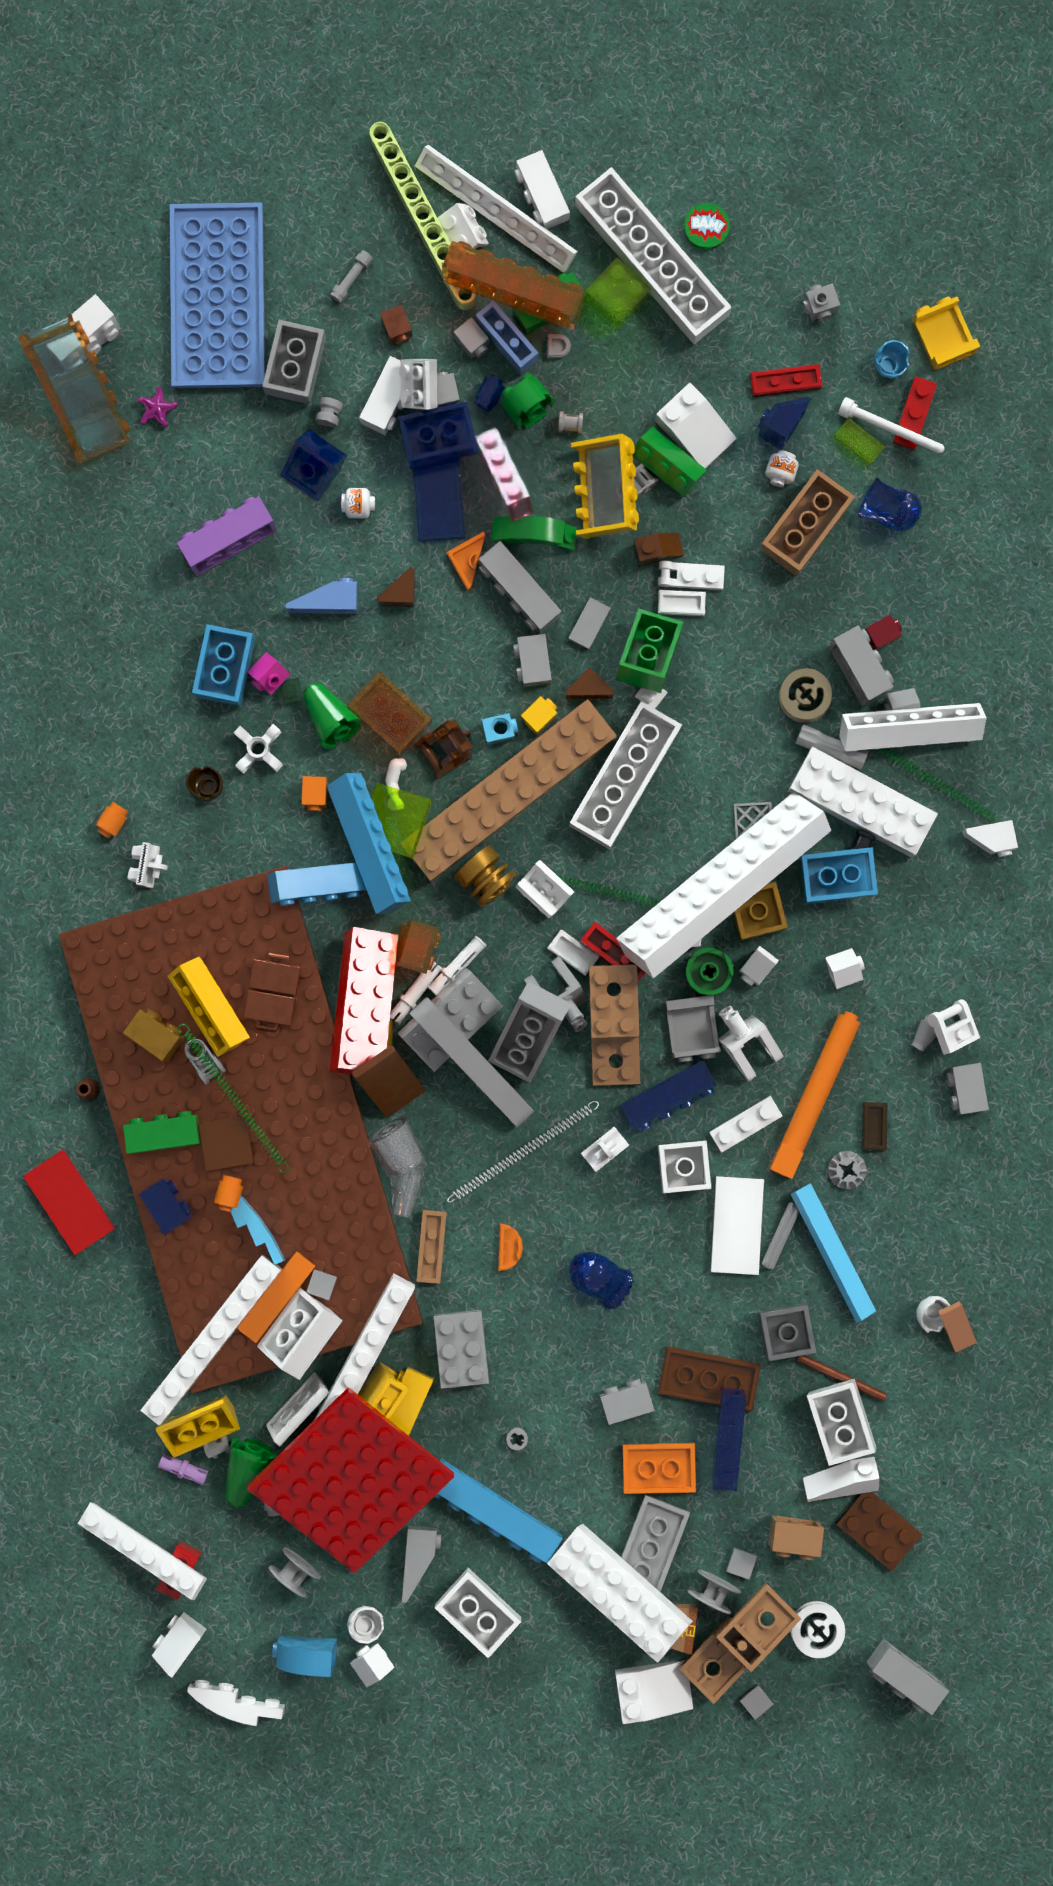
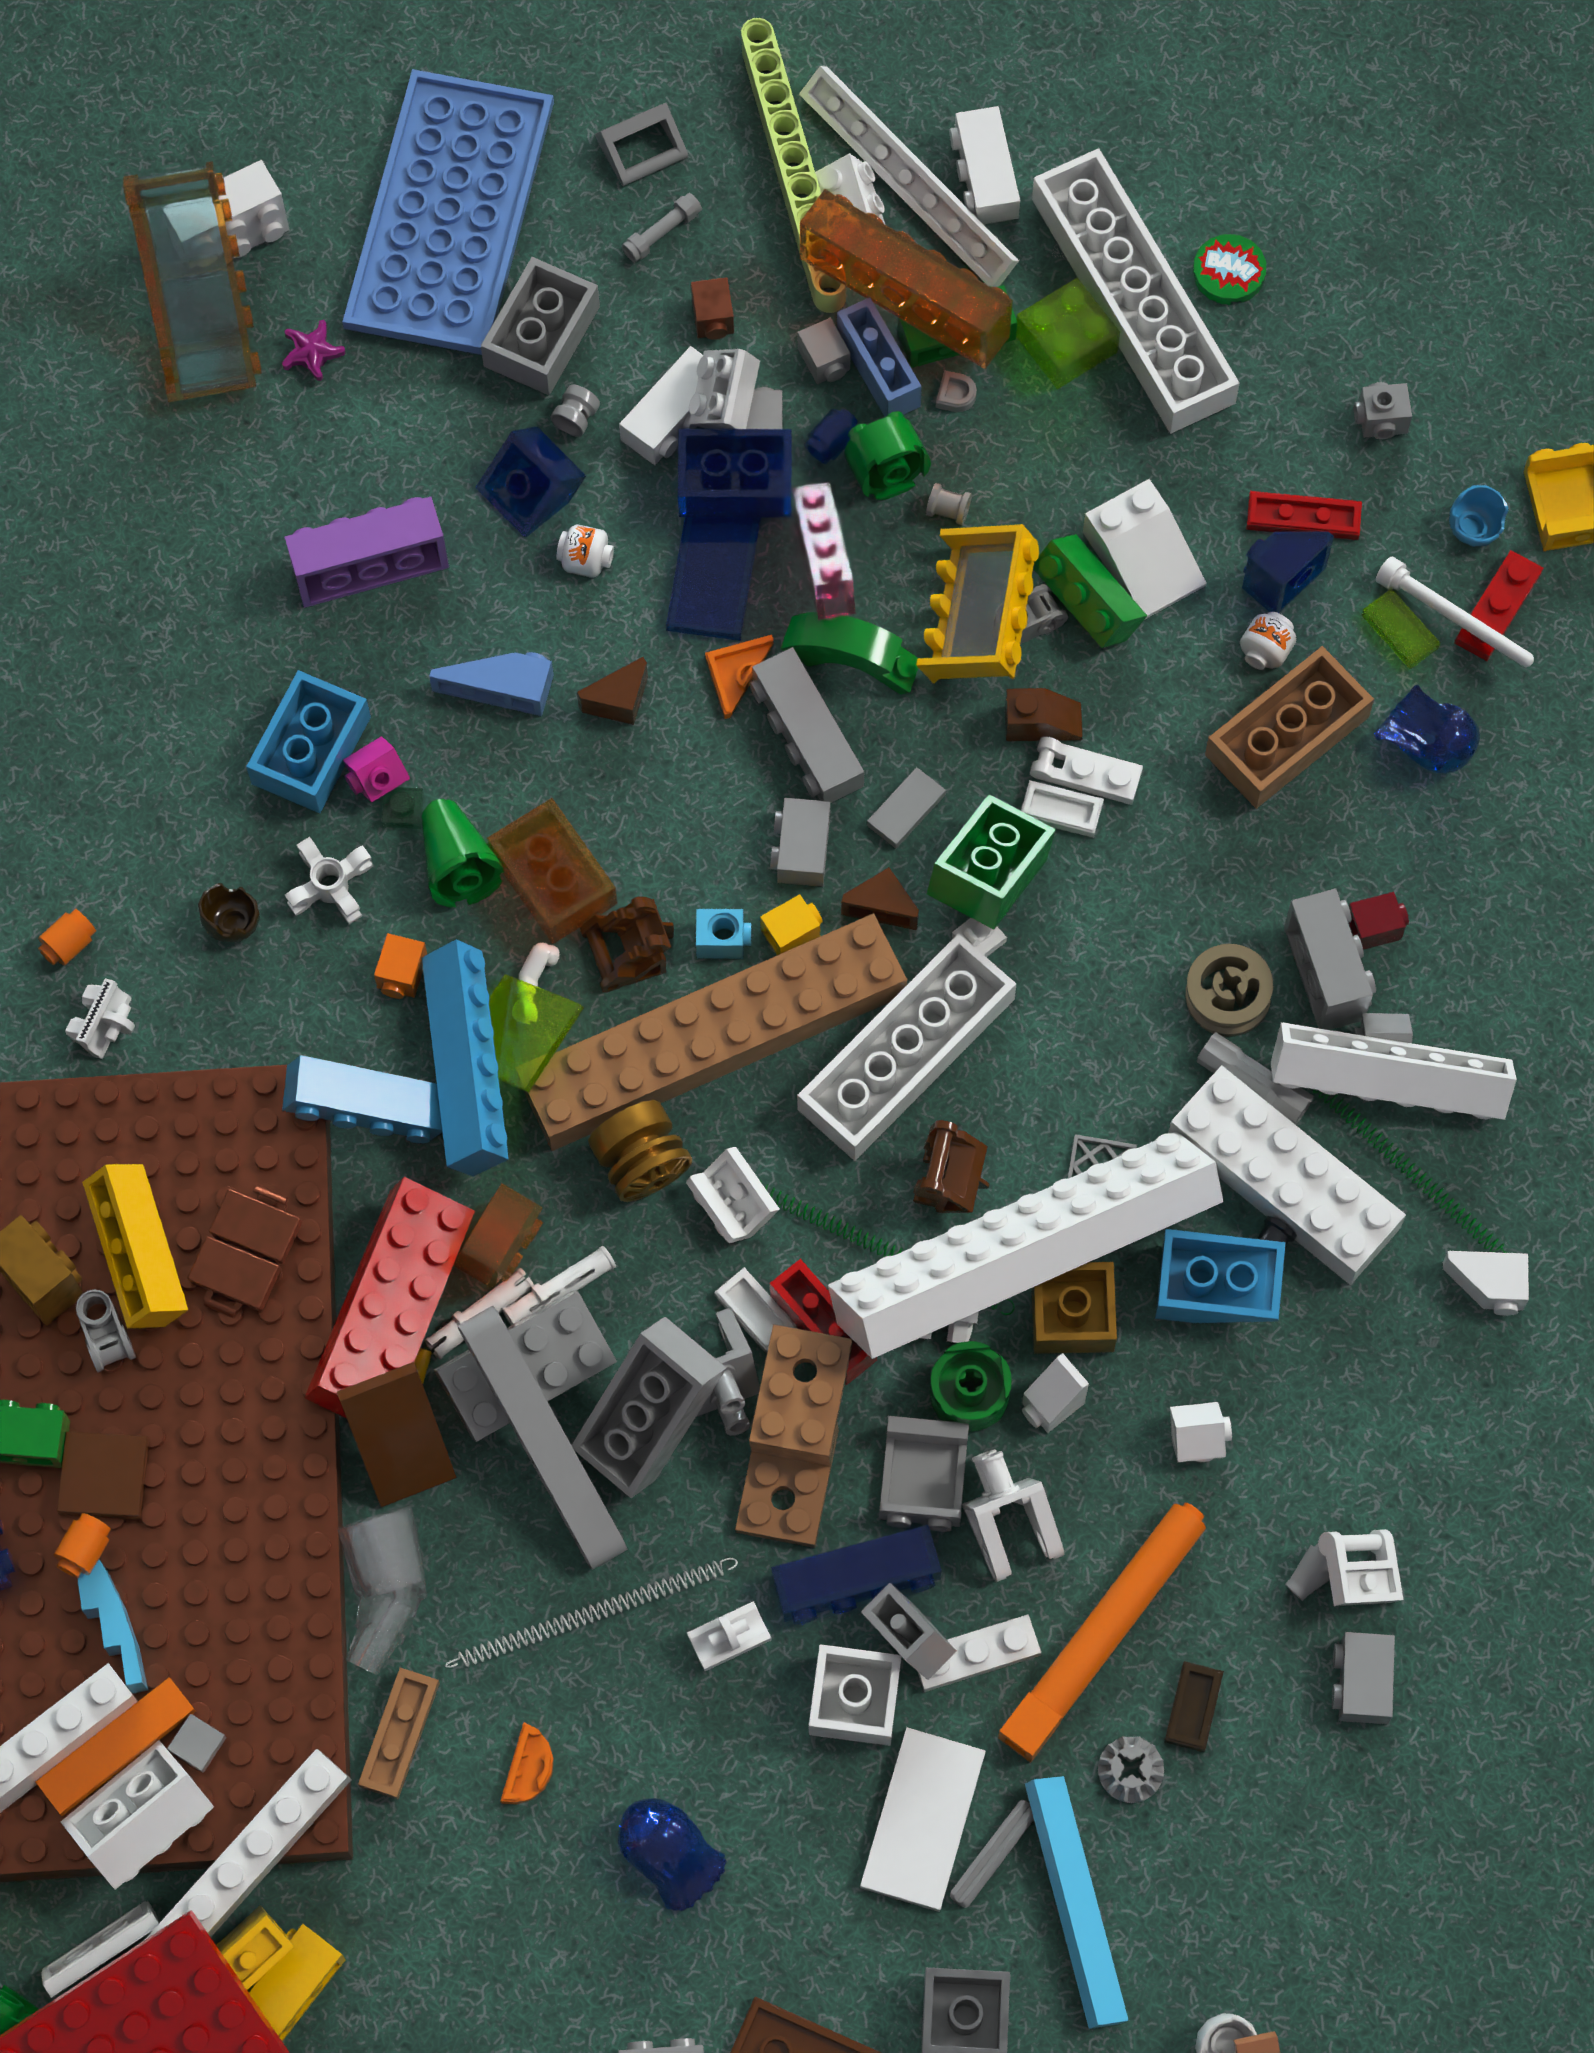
camera: 15 degrees right, 15 degrees down
(233, 1096) = (134, 1401): green piece -> none
(316, 212) = (636, 123): none -> light grey tile
(461, 1349) = (404, 1915): light grey brick -> none
(670, 846) = (953, 1169): none -> reddish brown piece
(706, 1124) = (908, 1631): none -> light grey brick

